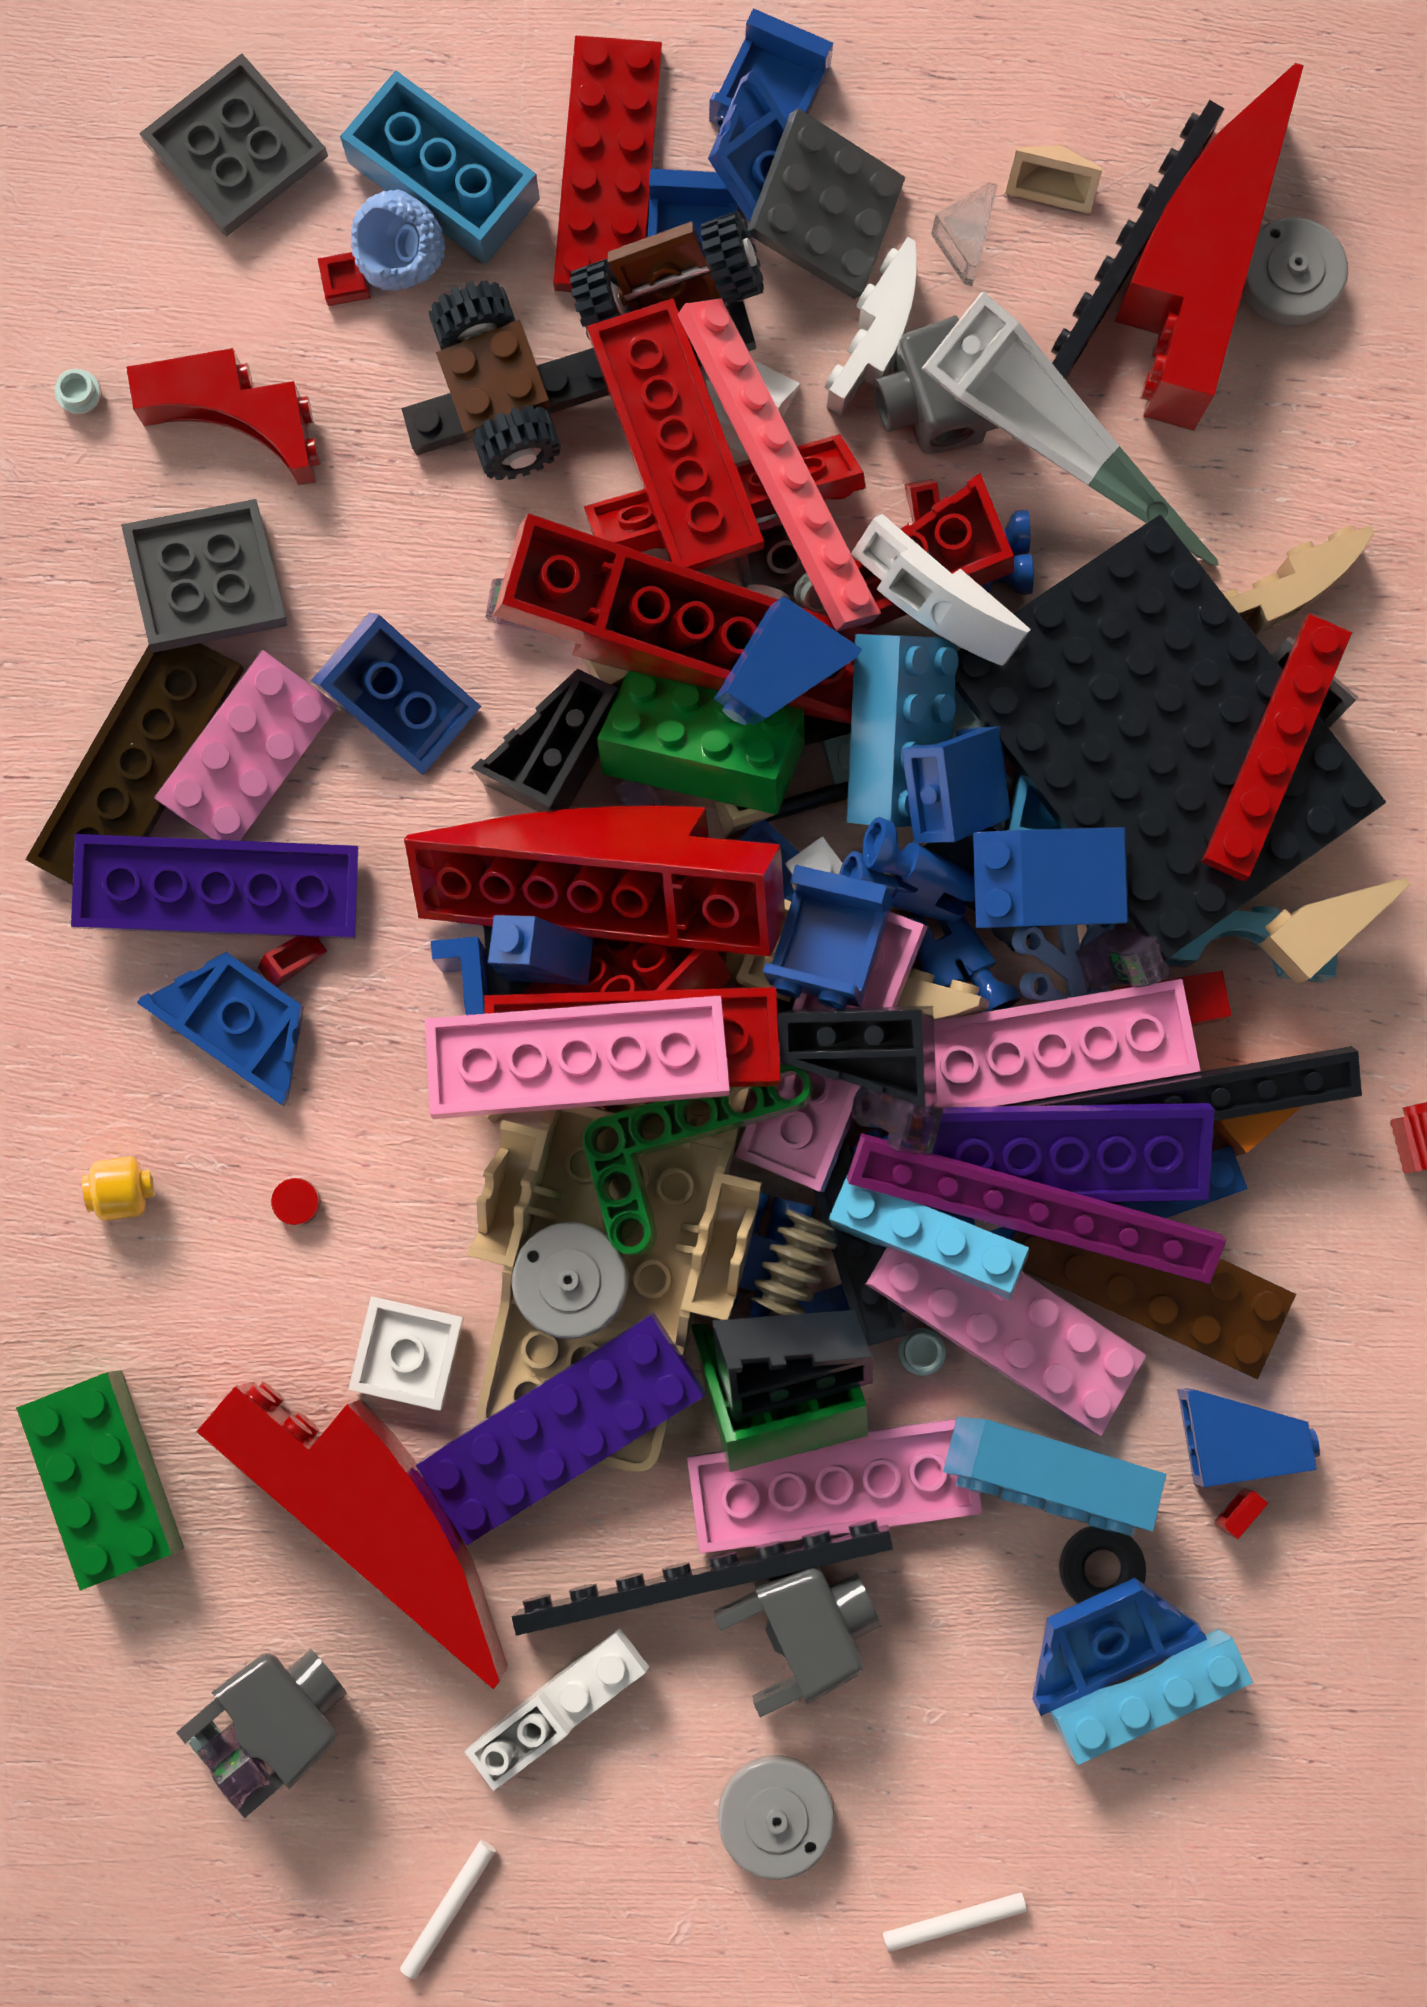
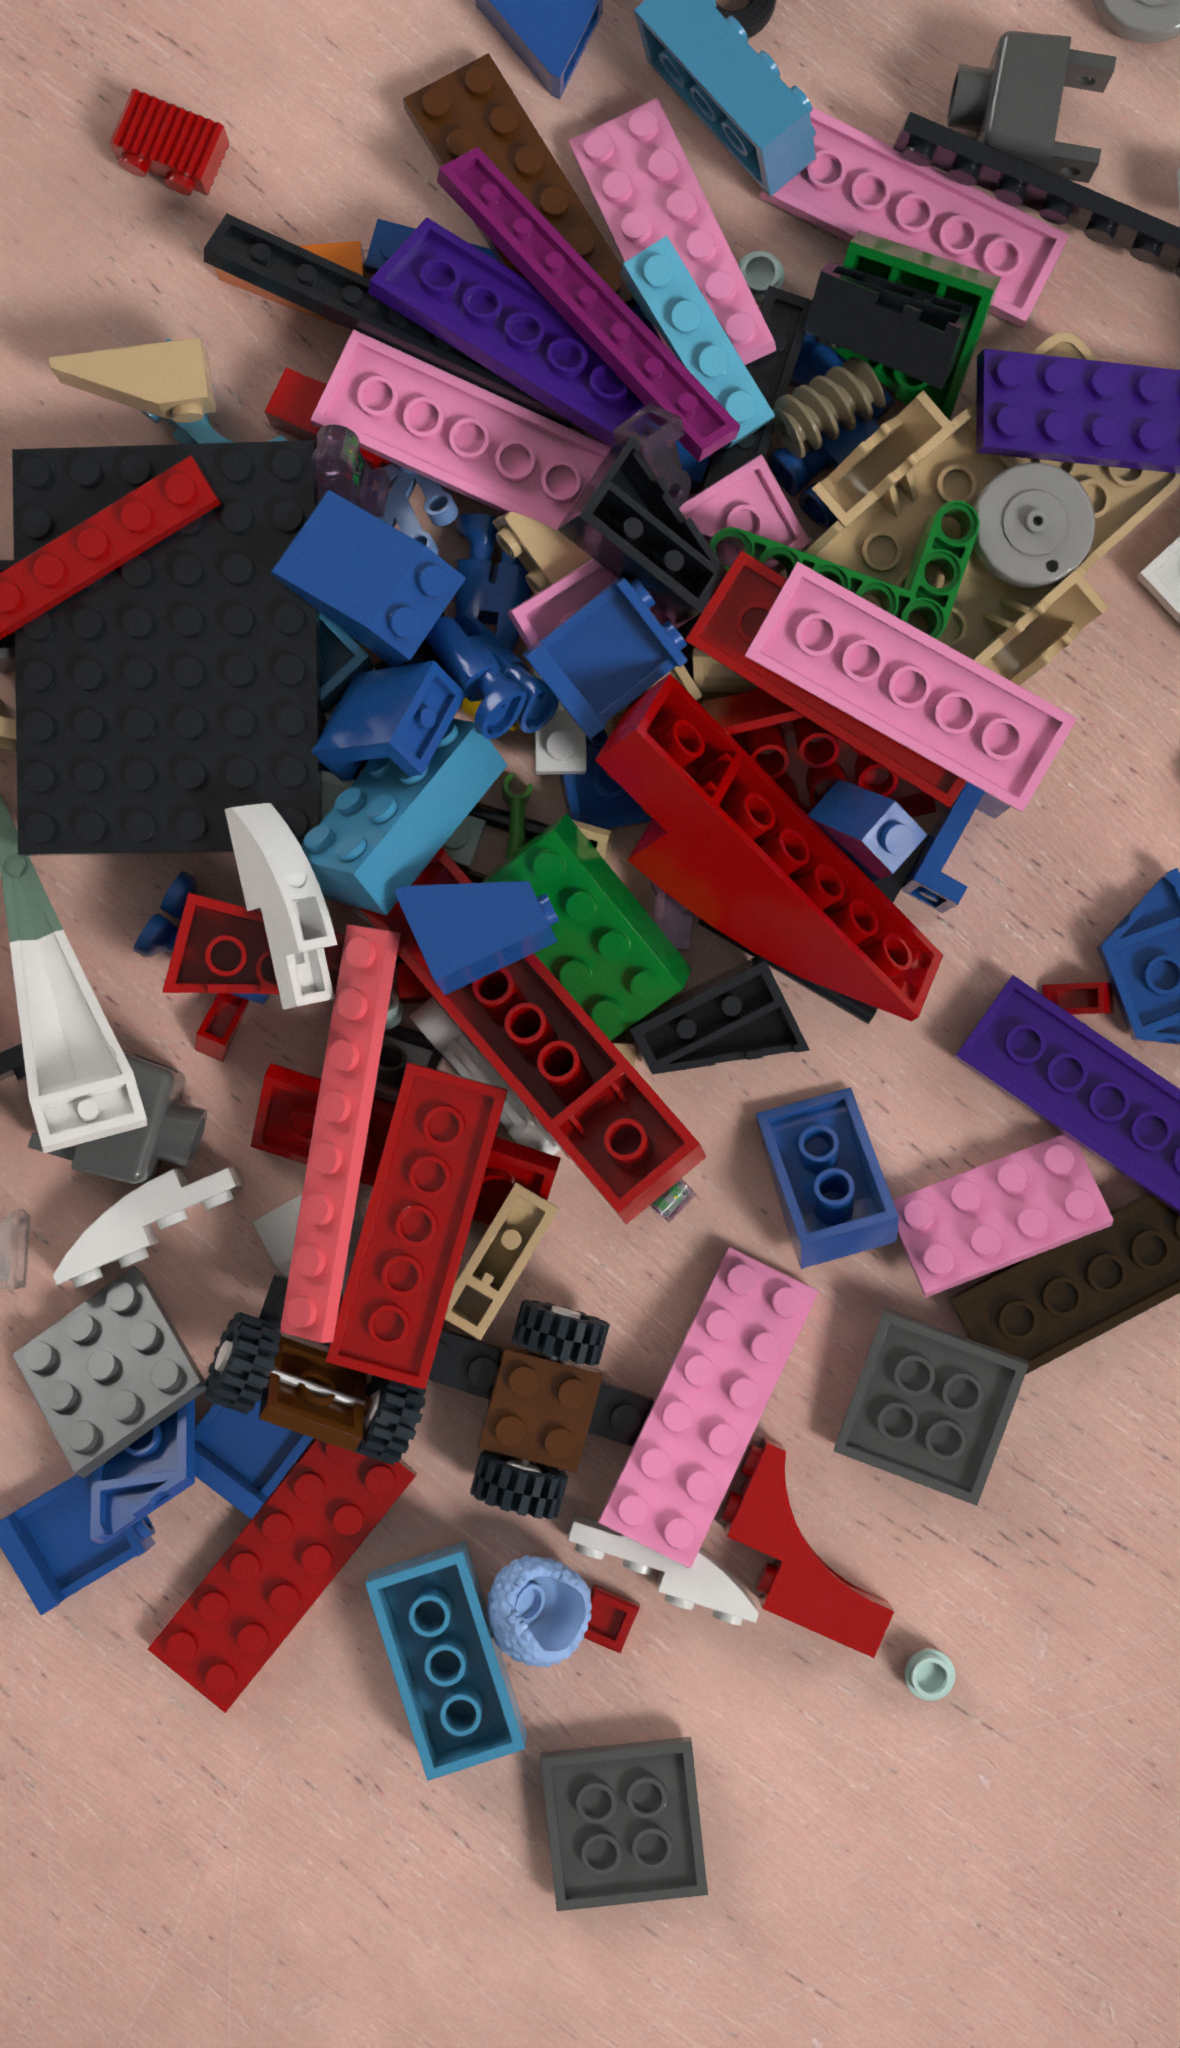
camera: 145 degrees left, 5 degrees up
(310, 348) = (703, 1584): none -> white slope
(370, 466) = (708, 1407): none -> bright pink plate
(597, 460) = (499, 1260): none -> tan slope
(813, 801) = (517, 814): none -> bright green piece

